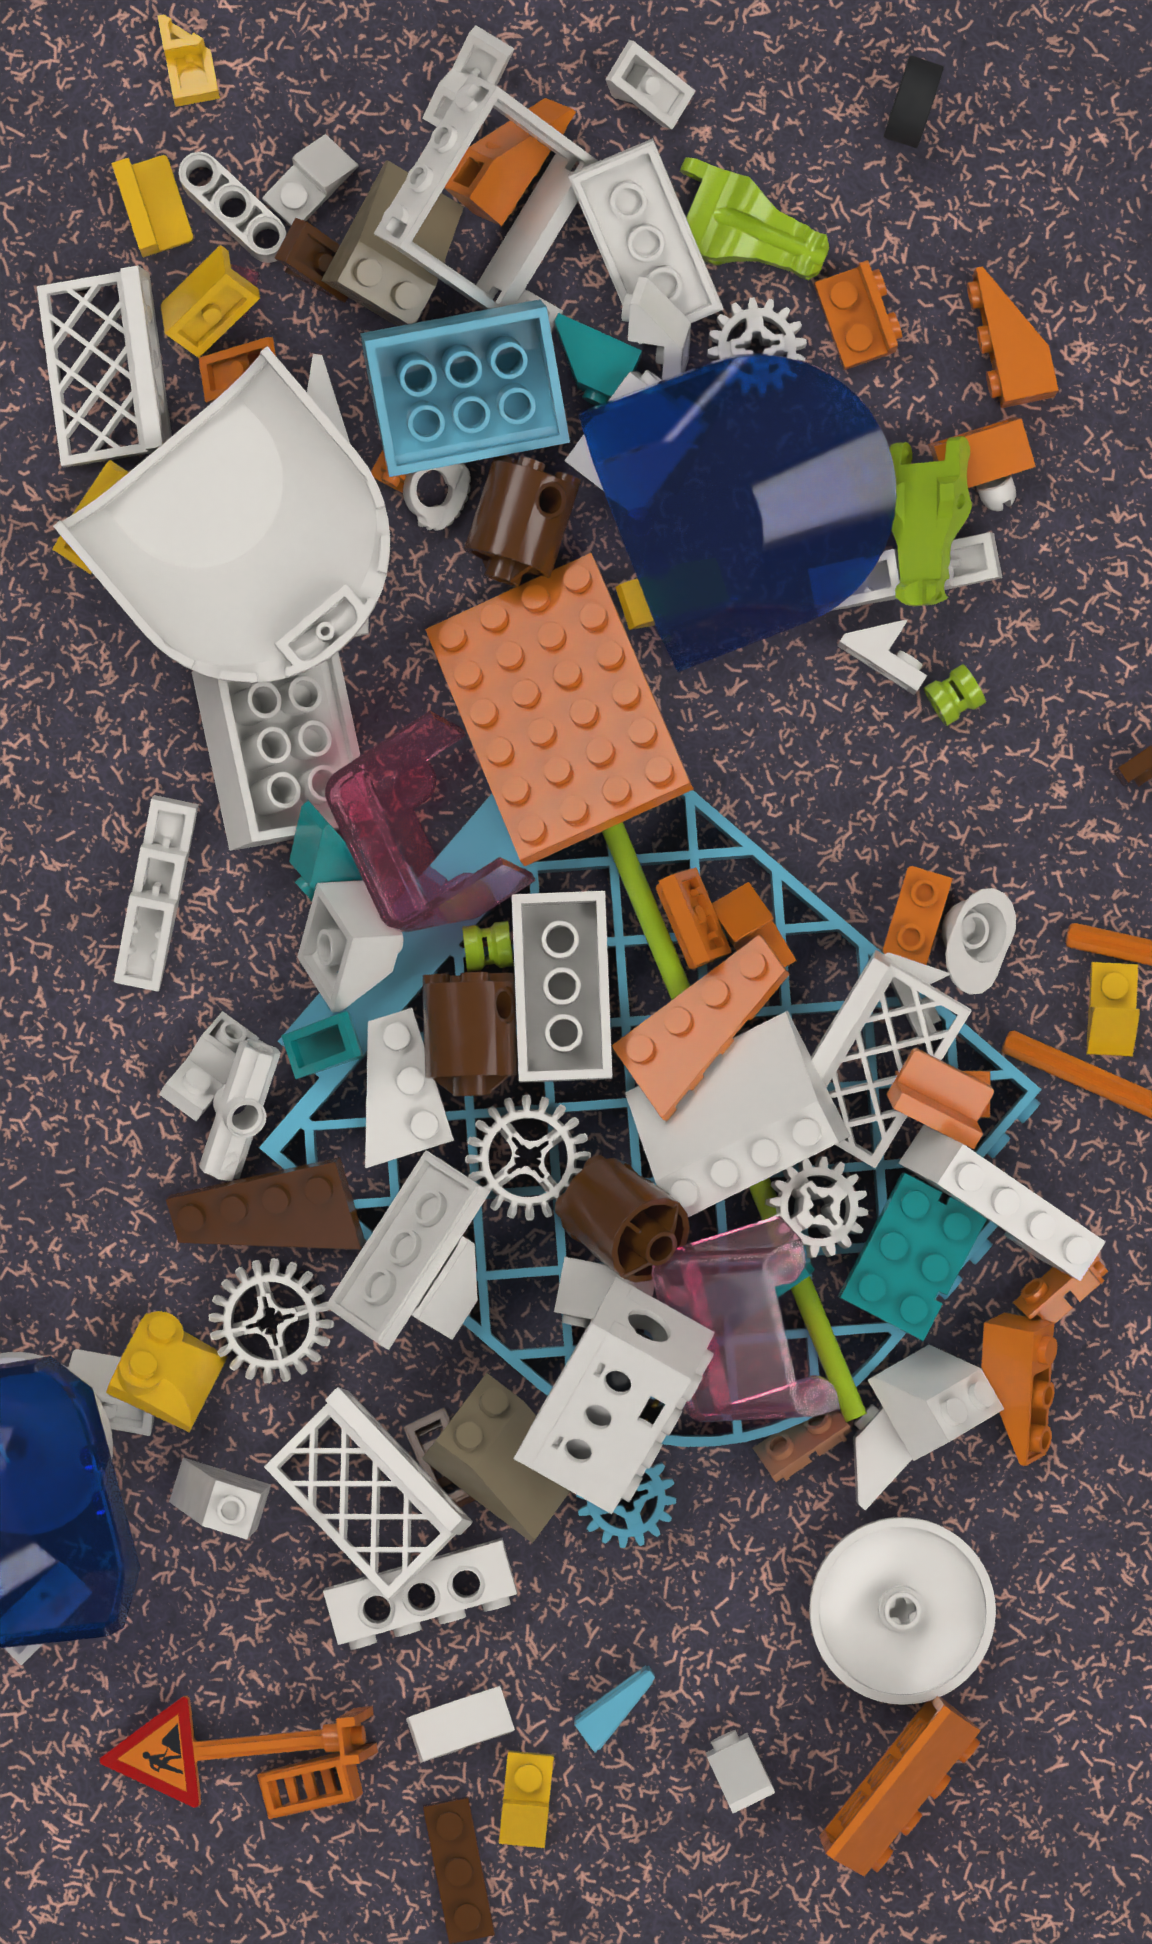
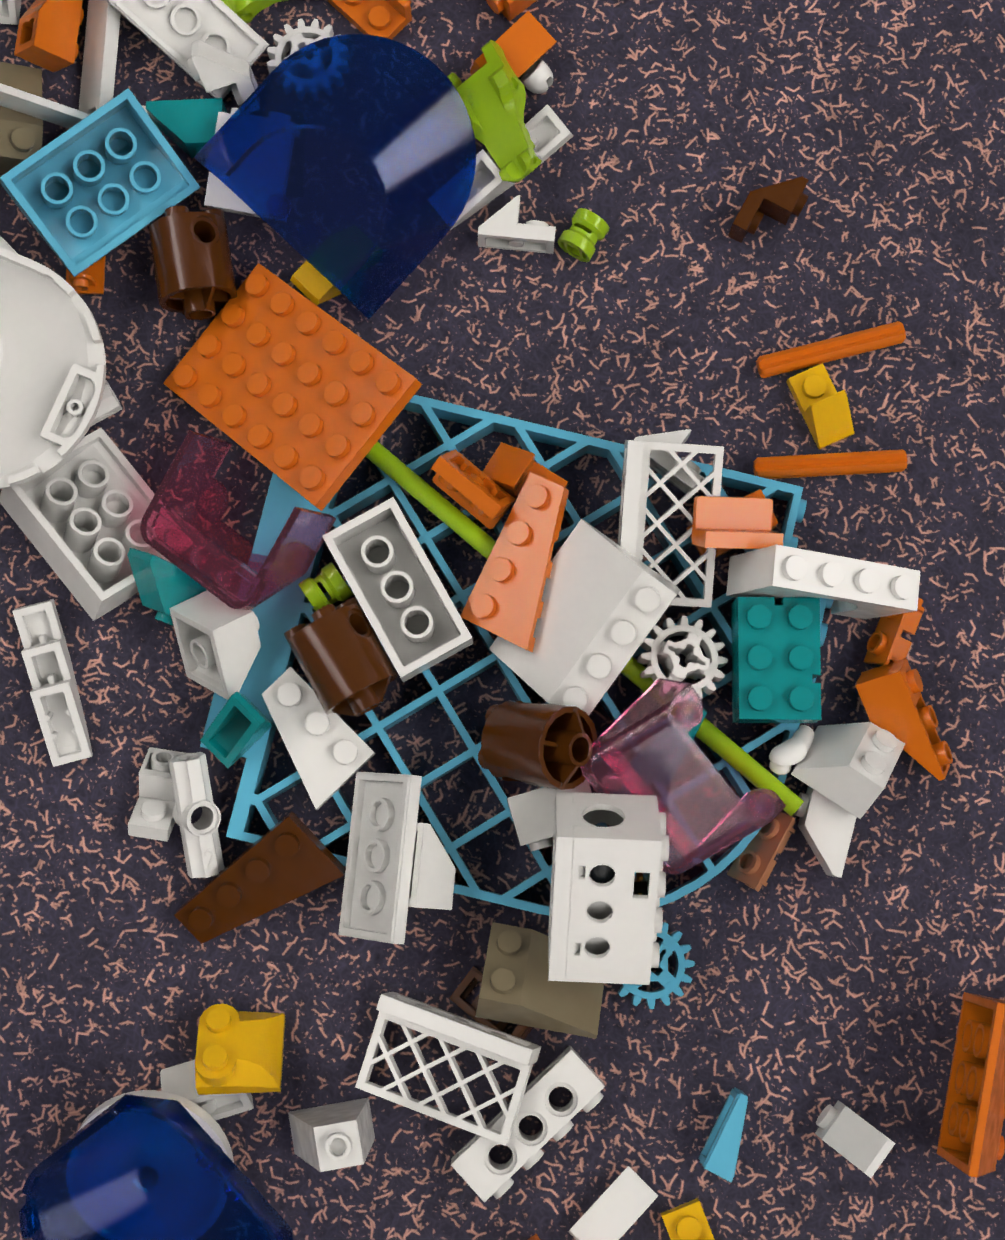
camera: 25 degrees left, 5 degrees down
(234, 1330) = (316, 982): white gear -> none
(443, 515) = (134, 264): white piece -> none
(504, 1126) = (407, 720): white gear -> none
(882, 1356) = (791, 751): none -> white arm
(902, 1610) = (910, 942): white dish -> none
(917, 914) = (640, 401): orange bracket -> none
(977, 939) = (694, 400): white piece -> none

